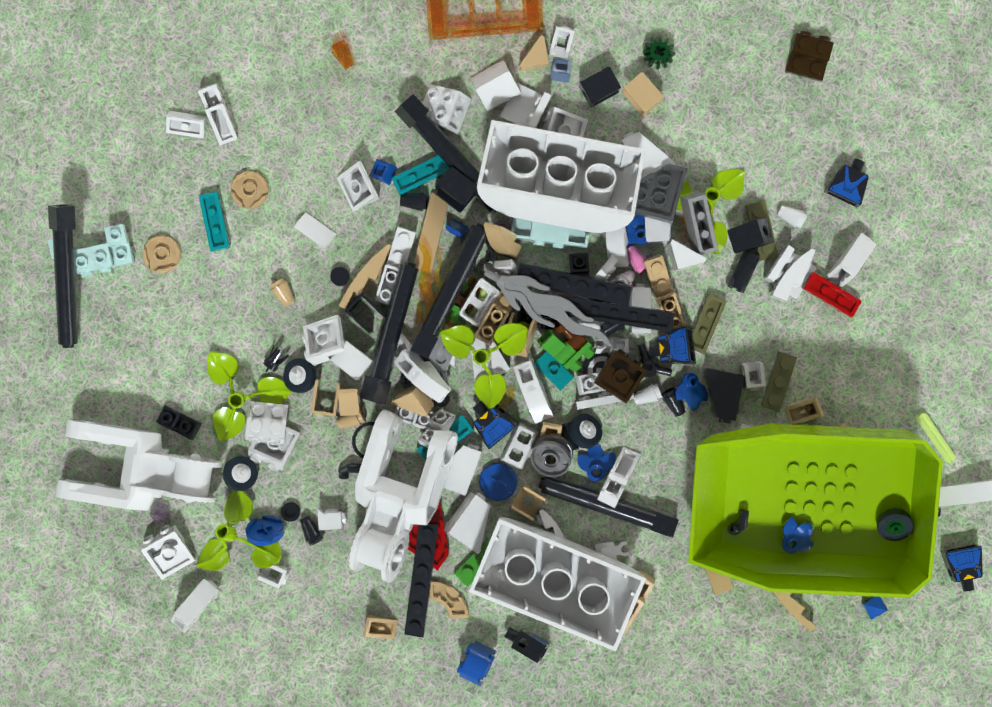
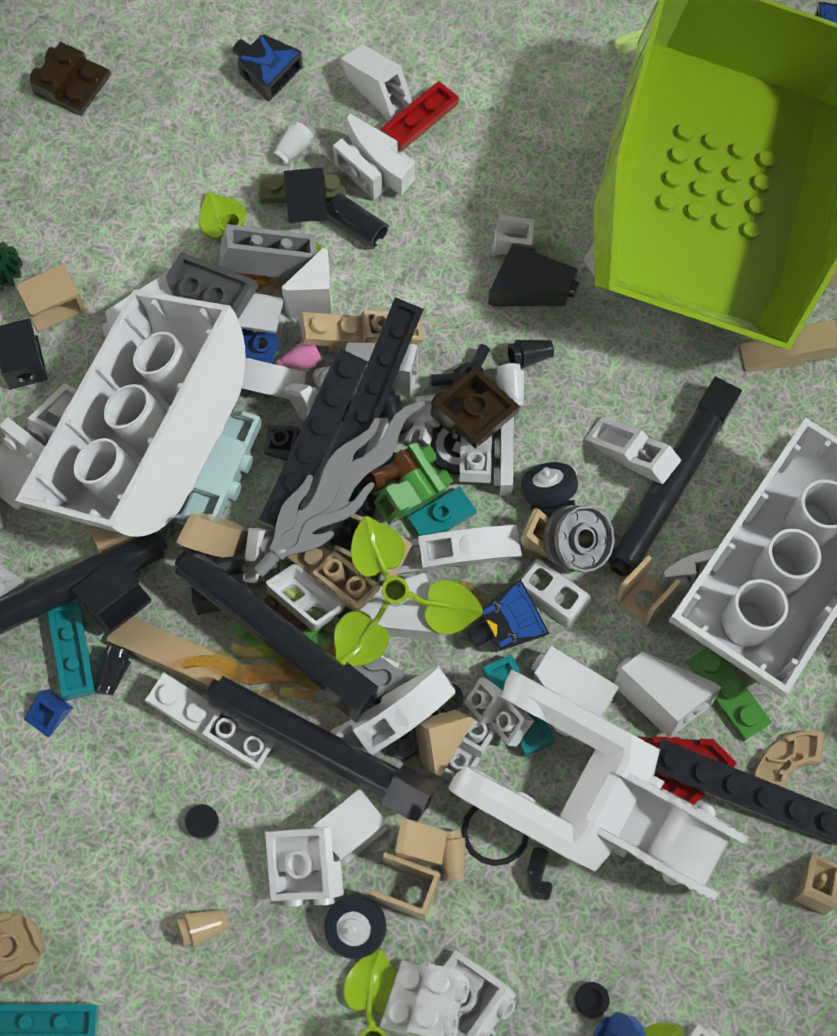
camera: 80 degrees left, 20 degrees down
(271, 361) = (320, 969): black piece -> none
(311, 531) = (632, 969): black cone -> none
(315, 230) = (113, 847): white slope -> none
(331, 519) = (618, 927): white window -> none
(355, 303) = (265, 772): black piece -> none
(357, 187) = (59, 754): white slope -> none
(370, 271) = (209, 766): tan slope -> none
(456, 228) = (177, 614): blue slope -> none
(498, 481) = (604, 637): blue tile -> none
(596, 459) = (597, 482): blue plate -> none
(610, 550) = (744, 489): white plate -> none
(675, 347) = (448, 329): torso -> none
(692, 393) = (518, 324): blue plate -> none
(707, 322) = (422, 285): olive plate -> none
(740, 524) = (737, 287): black arm -> none
(778, 381) = (521, 203): olive plate -> none
(798, 534) = (769, 220): blue plate -> none
(804, 410) = (580, 179): tan slope -> none
(894, 524) = (771, 93): black wheel -> none

